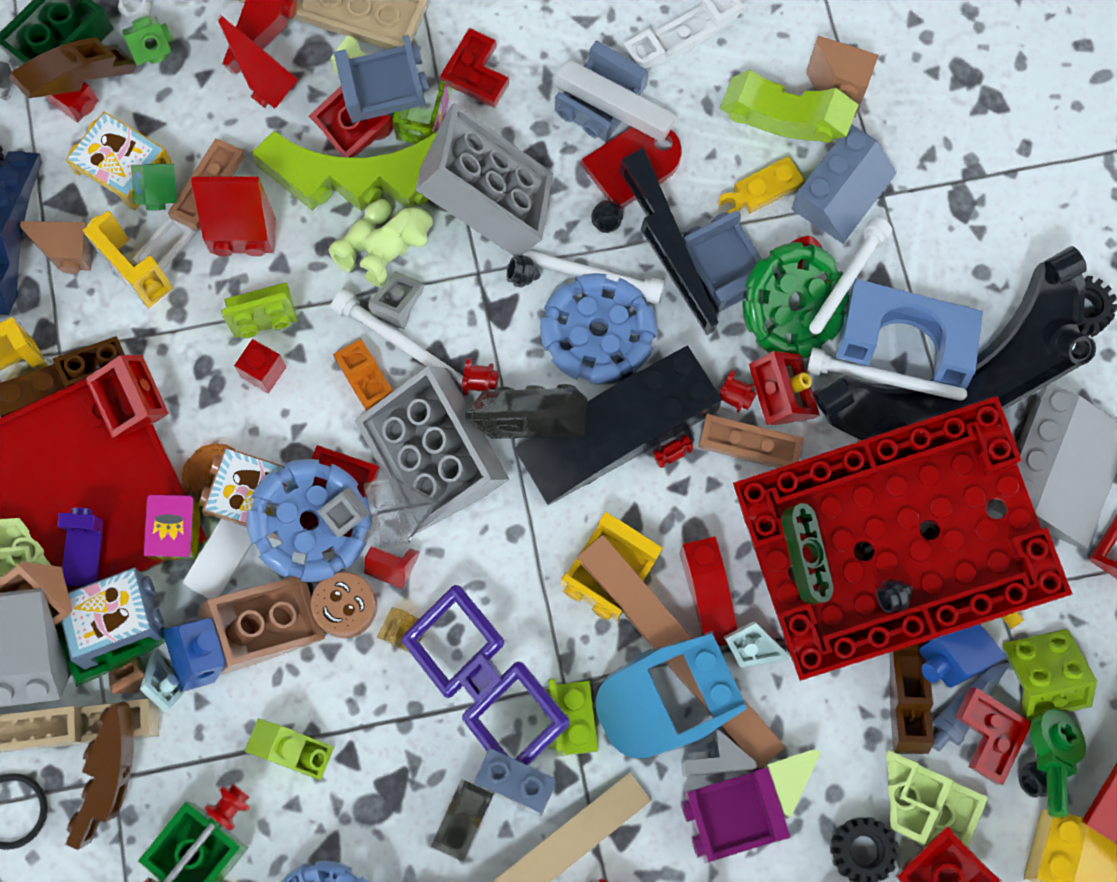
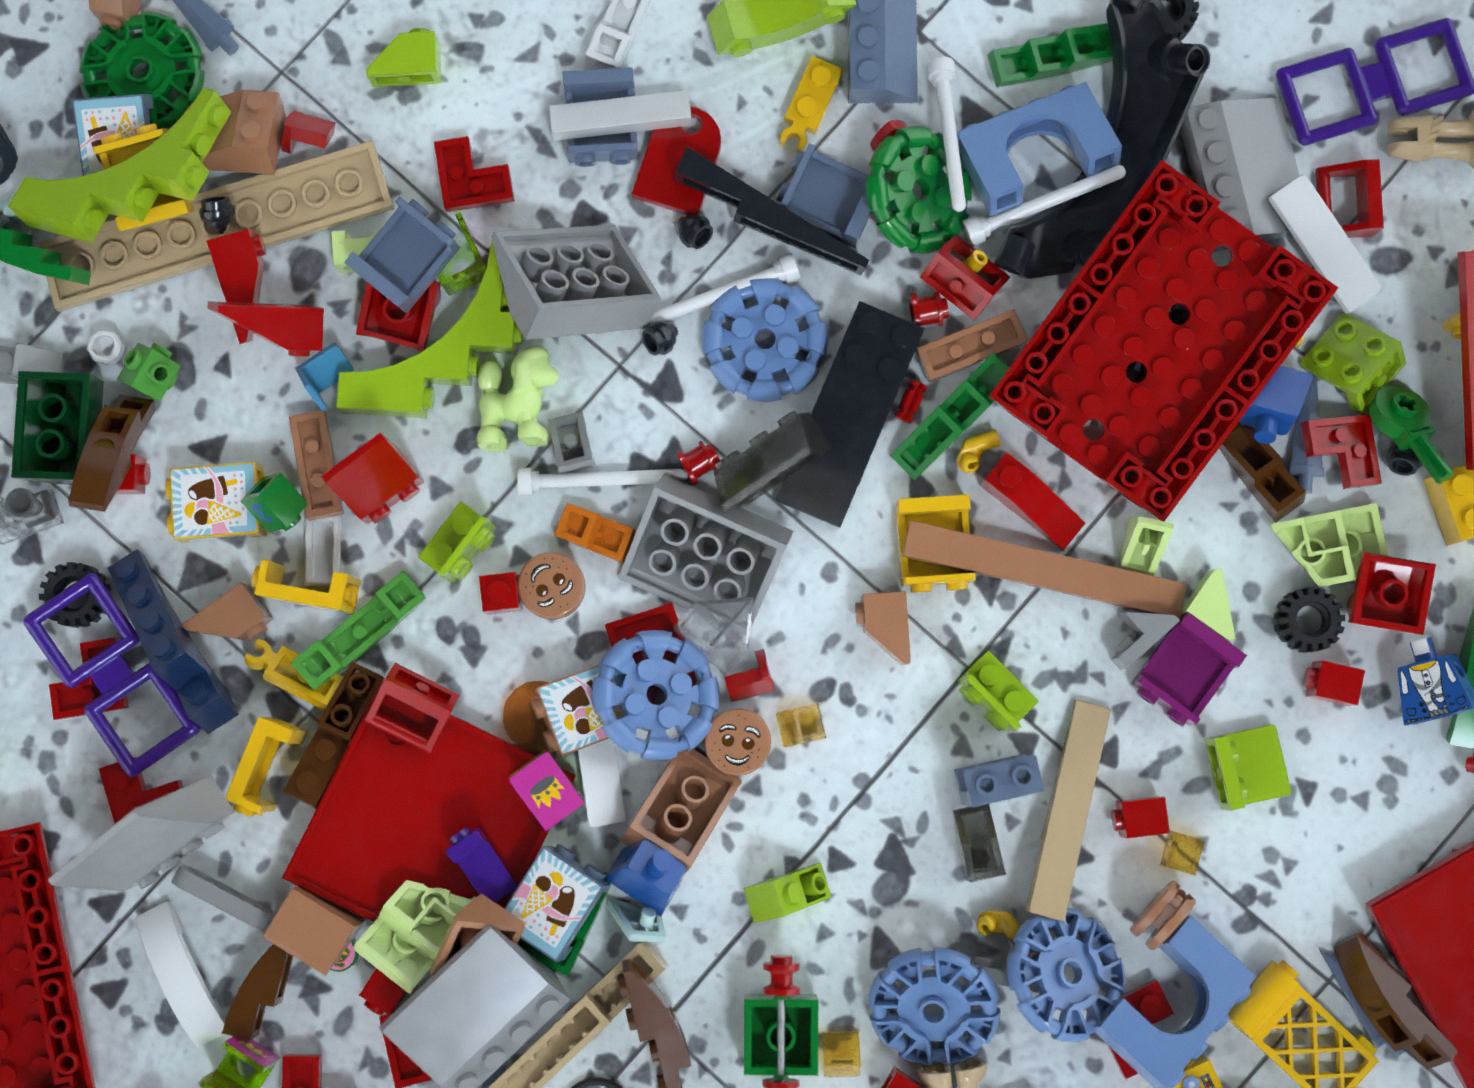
camera: 35 degrees left, 10 degrees up
(70, 314) = (283, 675): none -> yellow plate
(127, 677) = (604, 937): nougat slope -> none
(137, 321) = (359, 632): none -> bright green slope
(258, 123) = (323, 371): none -> dark azure bracket
(301, 389) = (551, 586): none -> nougat head
(343, 512) = (682, 666): light grey slope -> none
(482, 677) = (906, 716): dark purple bar -> none
(526, 599) = (886, 623): none -> nougat slope
(634, 710) = (1049, 649): dark azure slope -> none
(690, 485) = (950, 418): none -> green slope
(694, 520) = (972, 449): none -> yellow arm
(754, 646) = (1102, 519): light aqua piece -> none
(773, 690) = (1144, 544): none -> yellowish green slope
(813, 540) = (1110, 412): dark green beam -> none
(894, 595) = (1192, 394): black plate -> none
(971, 279) = (1052, 55): none -> green slope
(1089, 563) = (1325, 242): none -> white slope

